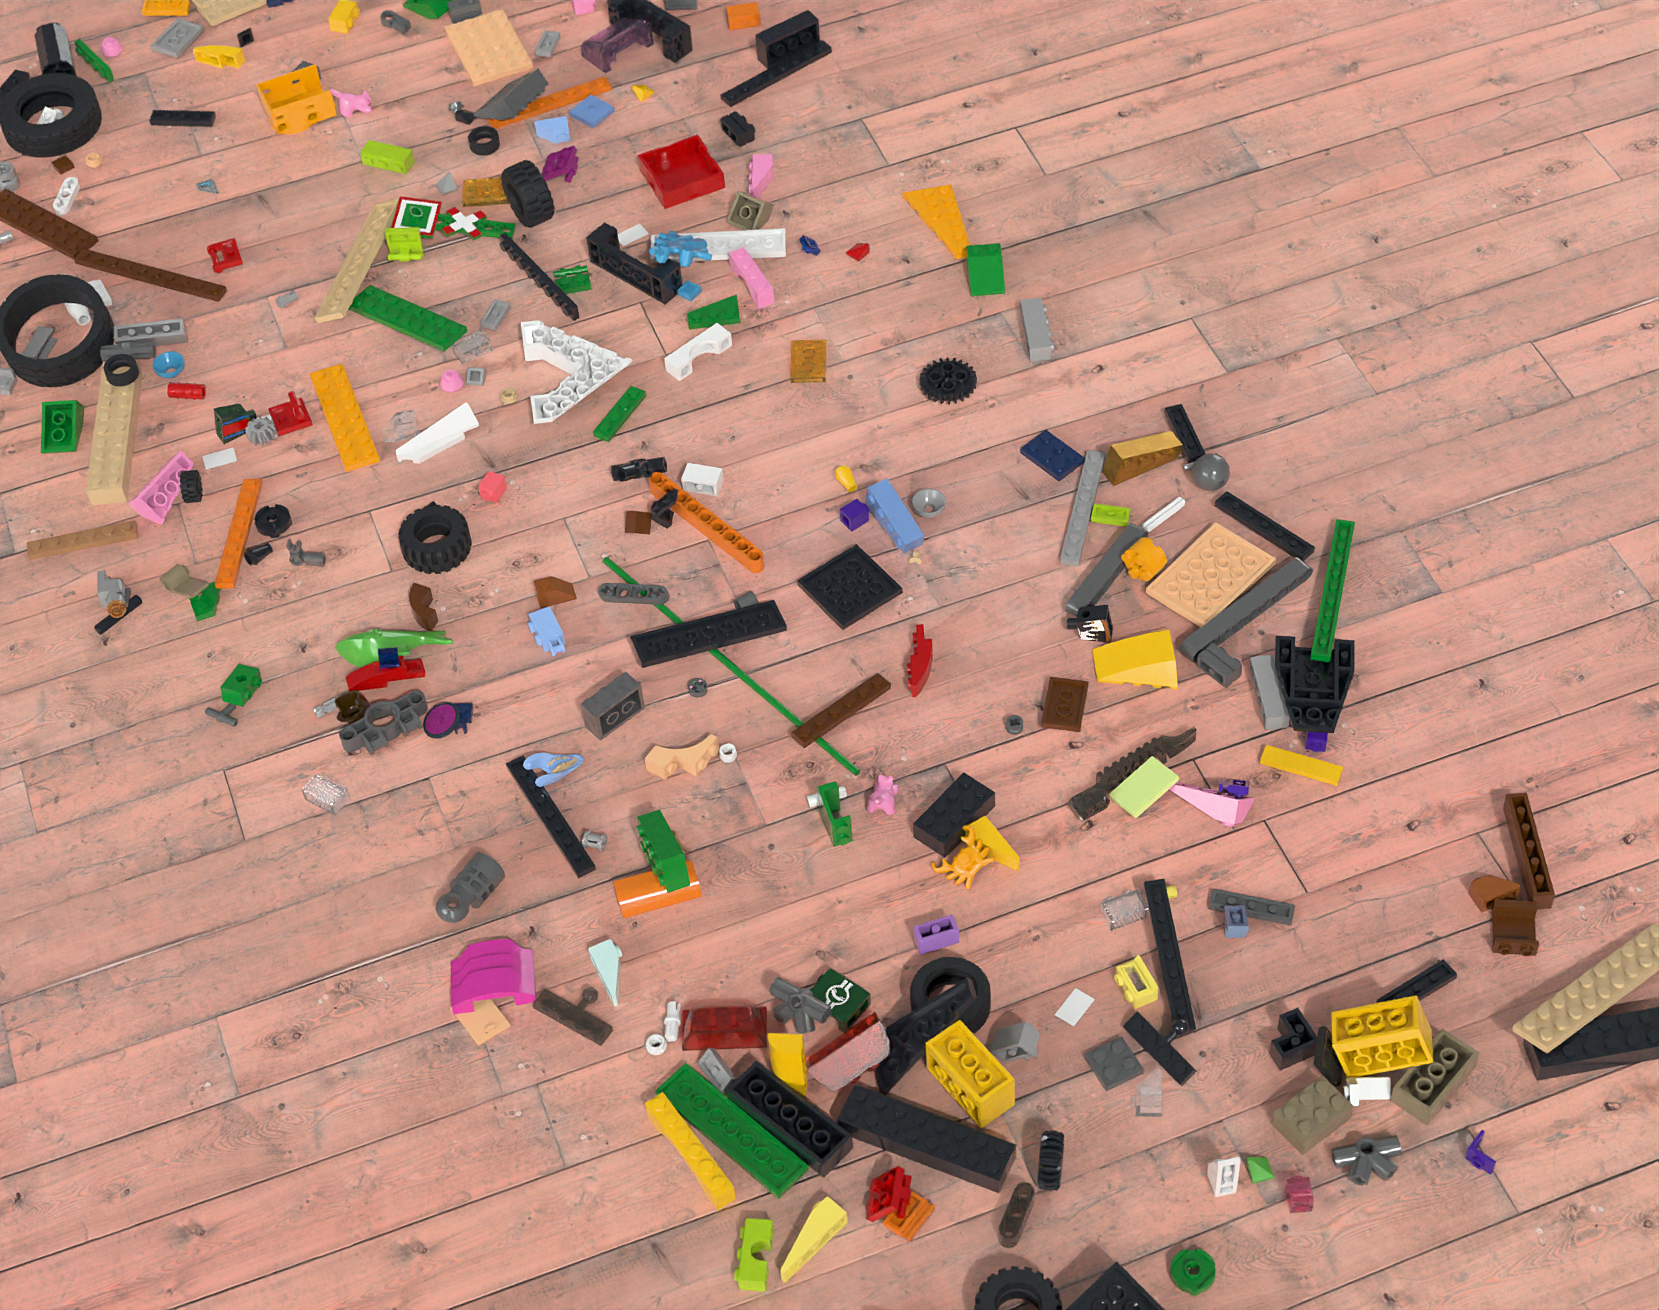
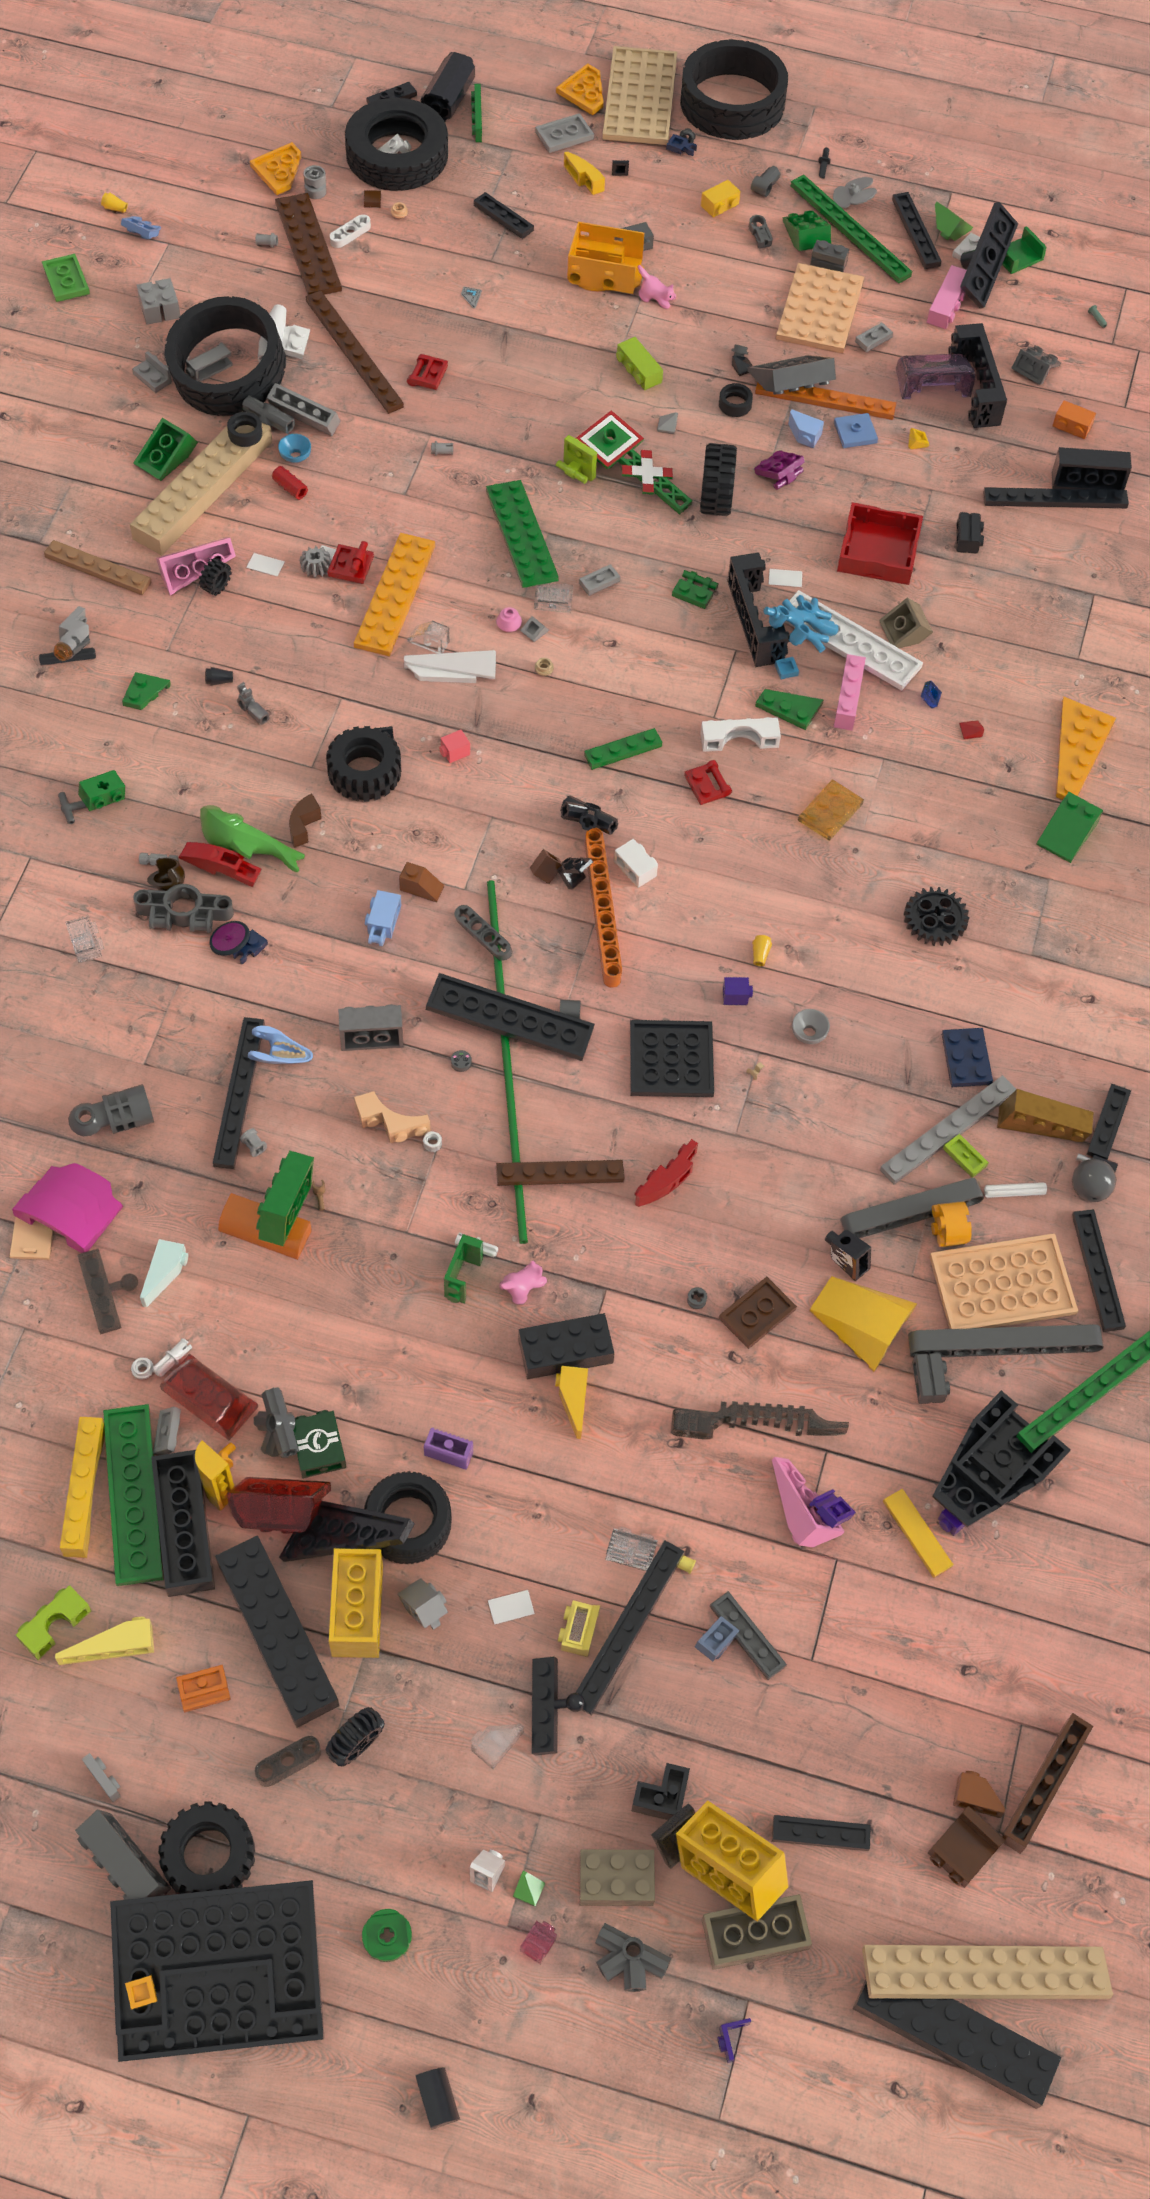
camera: 30 degrees right, 10 degrees up
(110, 47) = (502, 108): bright pink cone -> none
(180, 583) = (136, 662): dark tan door -> none
(232, 421) = (298, 537): clear green torso -> none
(238, 534) = (218, 646): orange plate -> none
(279, 526) = (255, 662): black plate -> none
(357, 262) = (526, 451): tan plate -> none
(388, 657) = (226, 850): clear blue plate -> none
(483, 192) = (688, 450): clear yellow plate -> none
(539, 276) = (666, 572): black plate -> none
(584, 360) = (634, 675): white wedge -> none
(702, 402) = (702, 785): none -> red plate
(762, 173) = (950, 593): bright pink slope -> none
(889, 1193) = (199, 1656): red plate -> none
(893, 516) = (766, 1018): medium blue wedge -> none
(967, 861) = (539, 1398): light orange animal -> none
(1035, 329) = (1063, 919): light grey brick -> none
(1114, 1063) = (495, 1687): dark grey plate -> none
(1144, 787) = (752, 1446): yellowish green tile -> none
(1268, 692) = (950, 1438): light grey brick -> none
(1366, 1088) = (687, 1890): white bracket -> none

